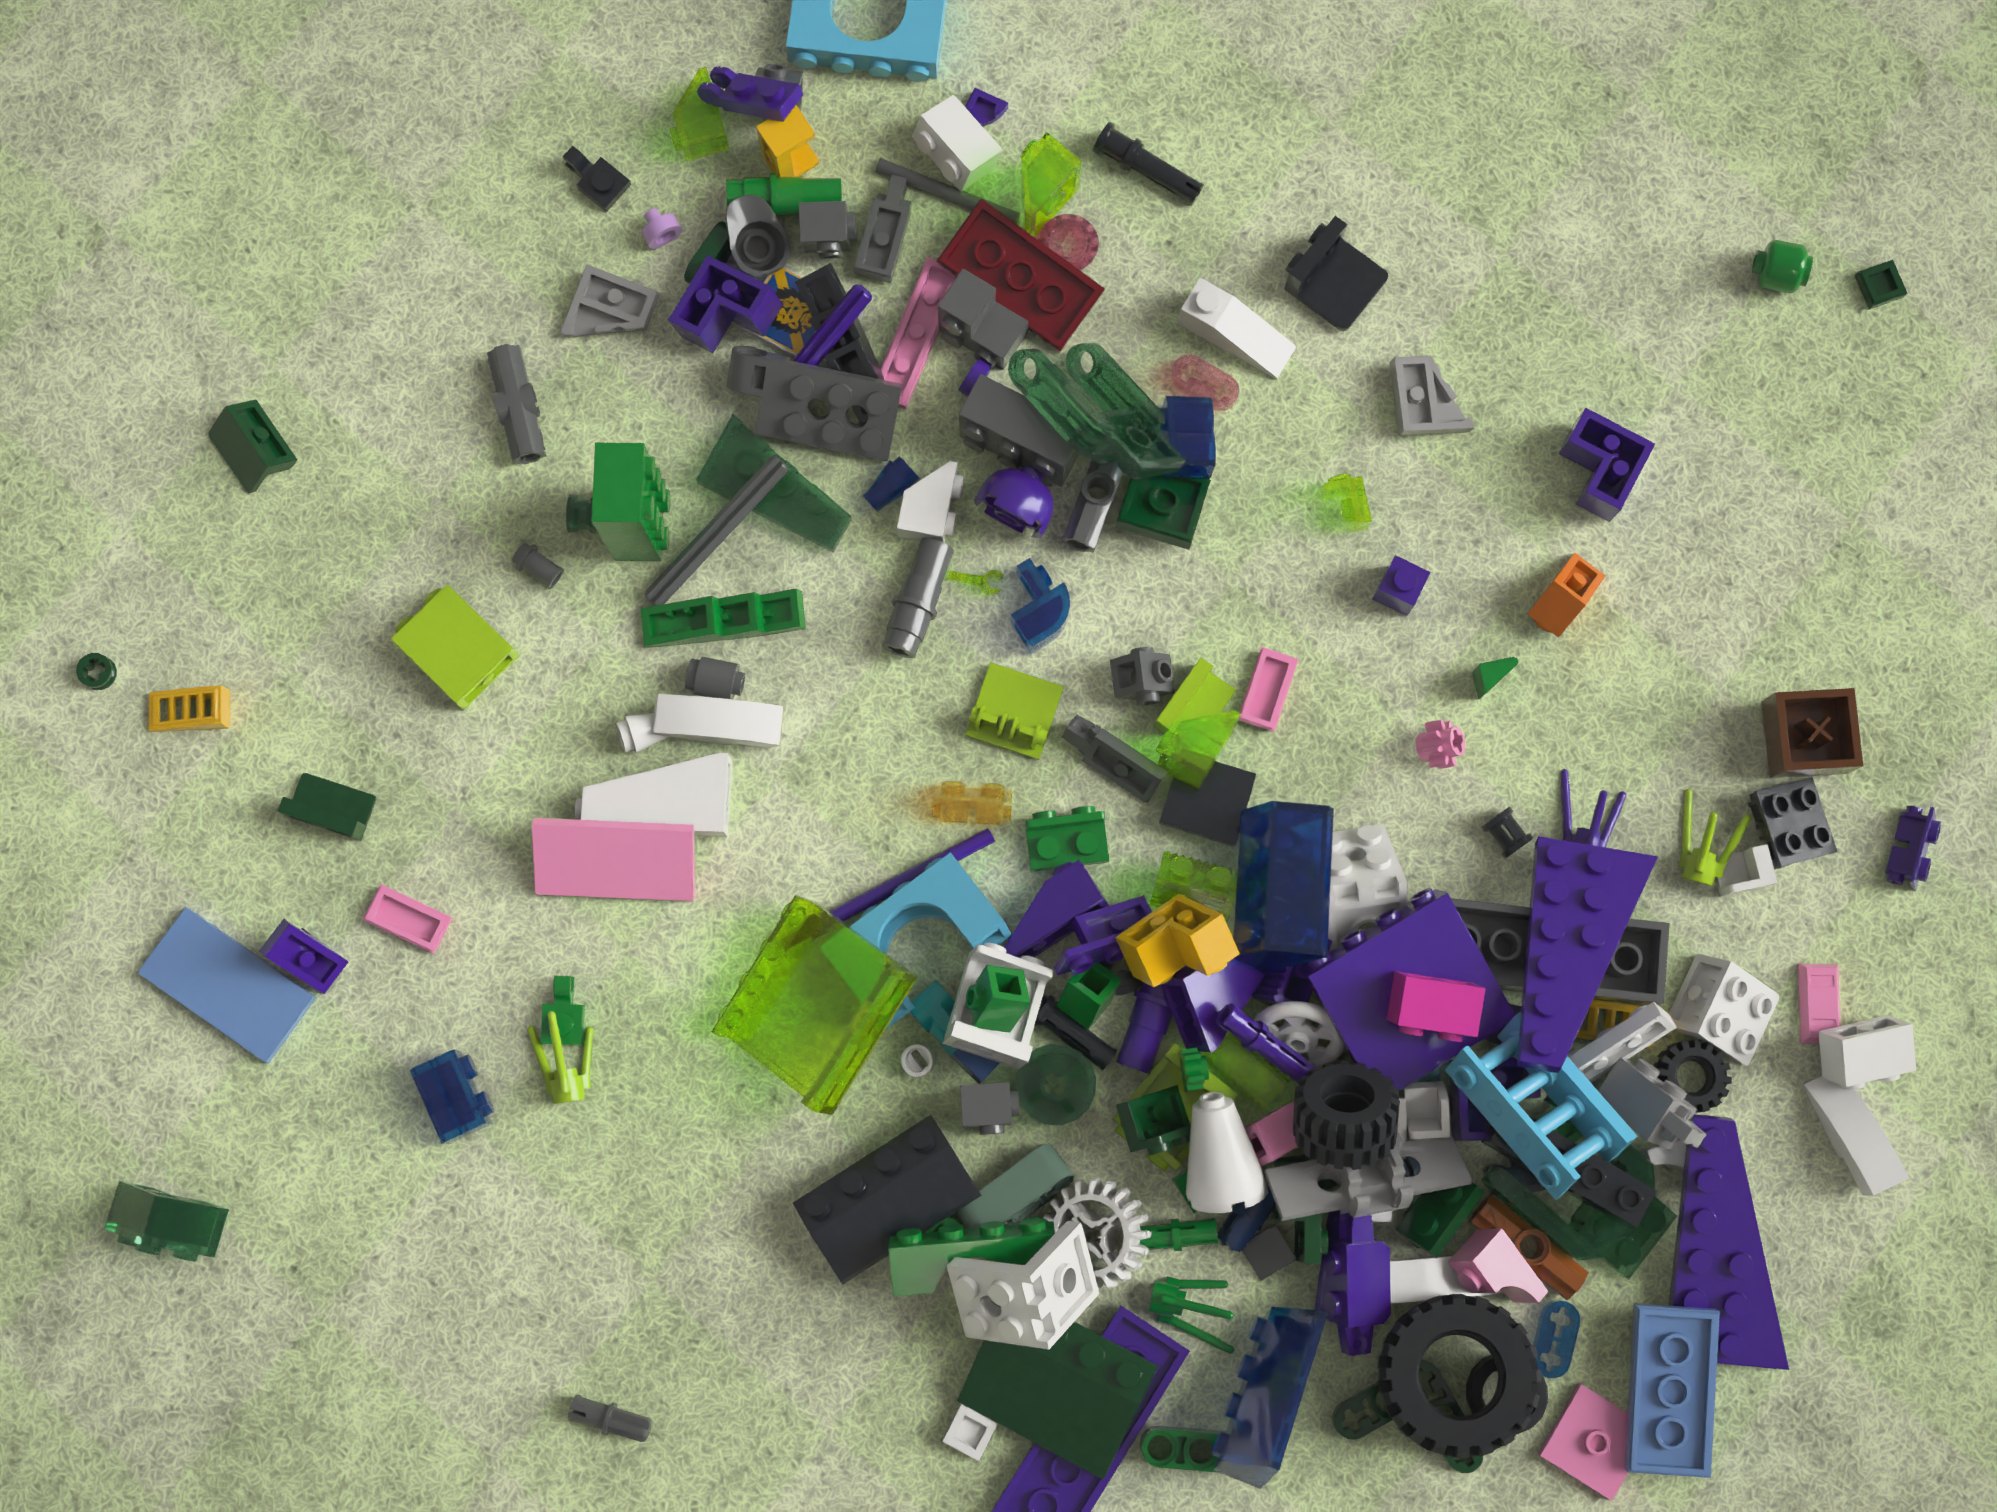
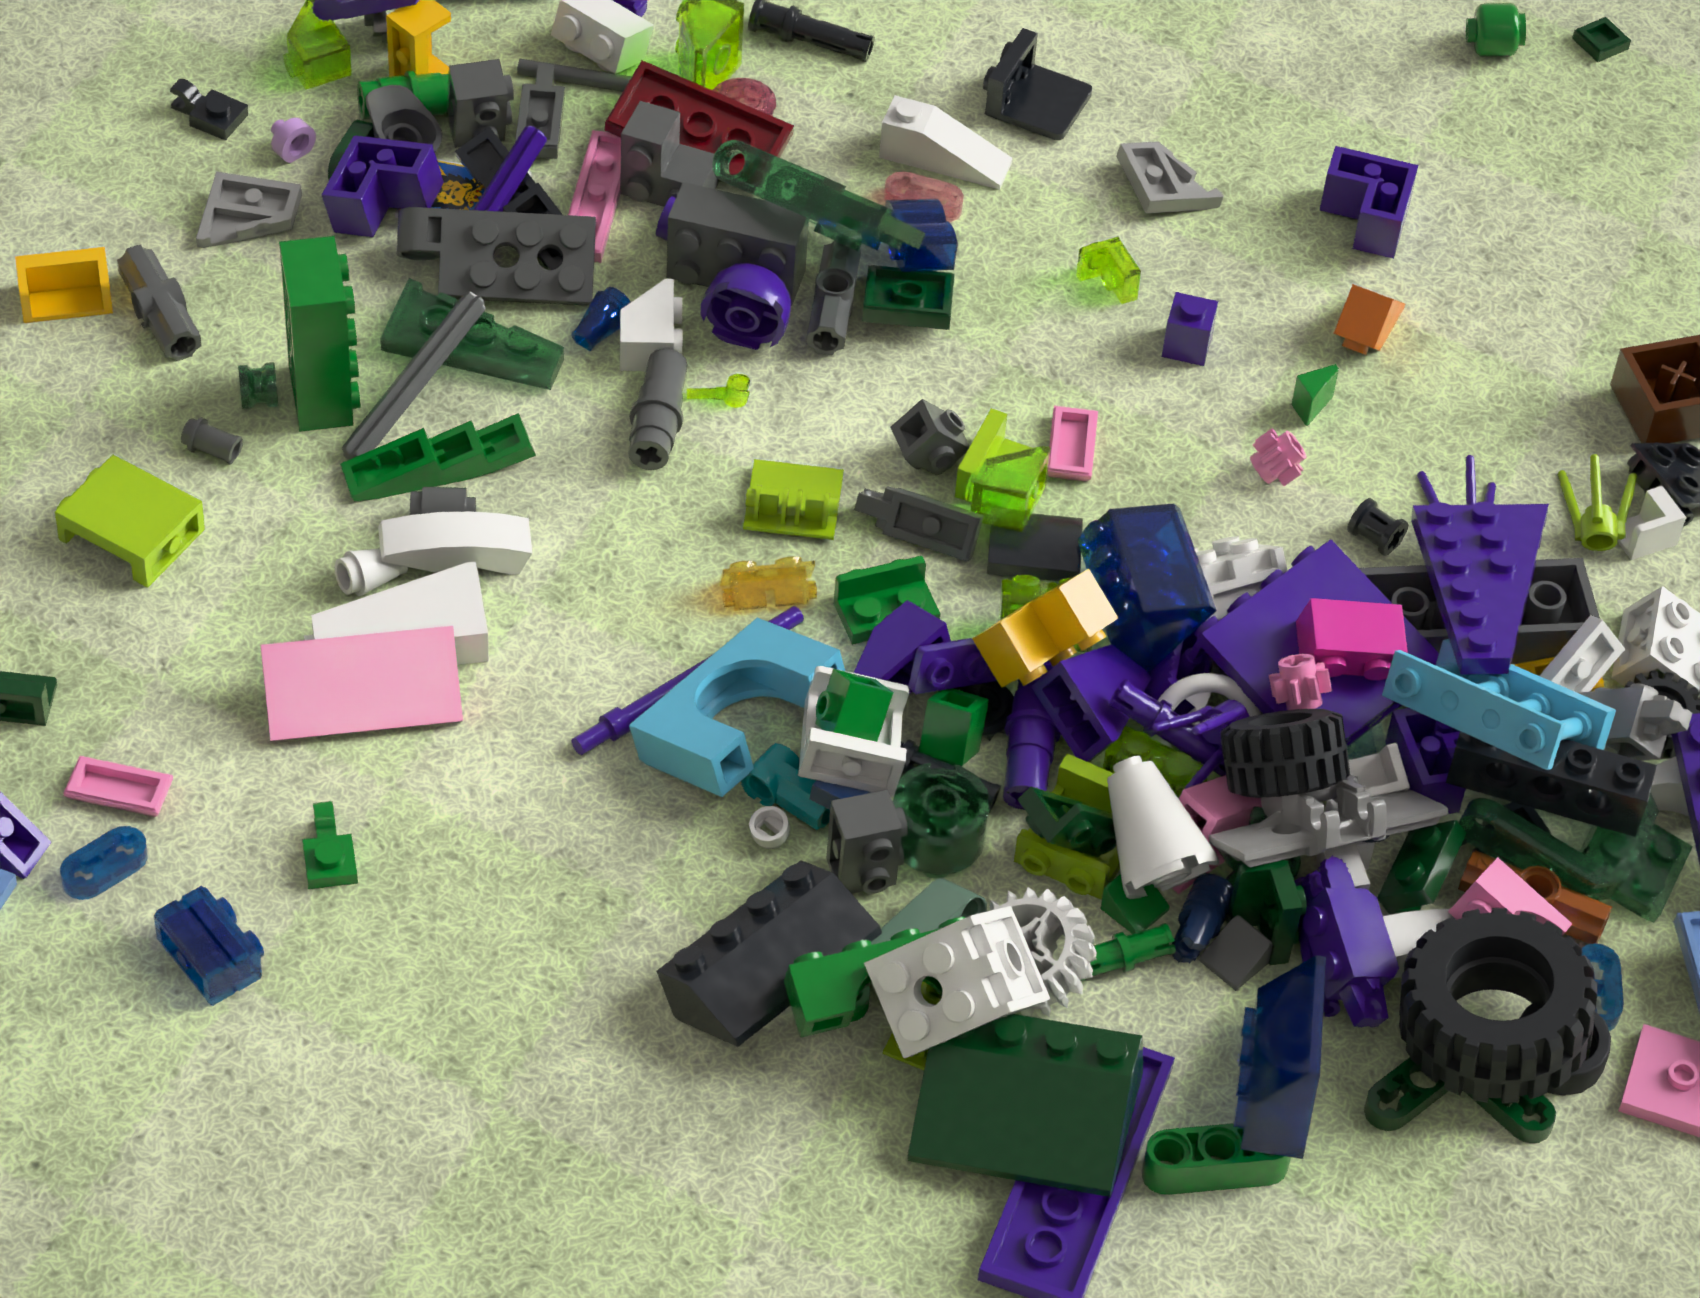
camera: 15 degrees left, 30 degrees down
(389, 1002) = (104, 862): none -> clear blue beam
(438, 372) = (64, 284): none -> yellow panel
(564, 1083) = (349, 914): lime plant -> none
(609, 1419) = (476, 1248): dark grey axle -> none
(815, 1003) = (635, 768): clear neon green panel -> none
(970, 1432) = (932, 1188): white plate -> none
(1047, 614) = (800, 400): clear blue brick -> none
(1170, 1300) = (1136, 1016): green plant -> none
(1193, 1069) = (1095, 754): green plate -> none
(1304, 1057) = (1211, 723): none -> dark purple plant
(1377, 1046) = (1300, 682): none -> bright pink gear

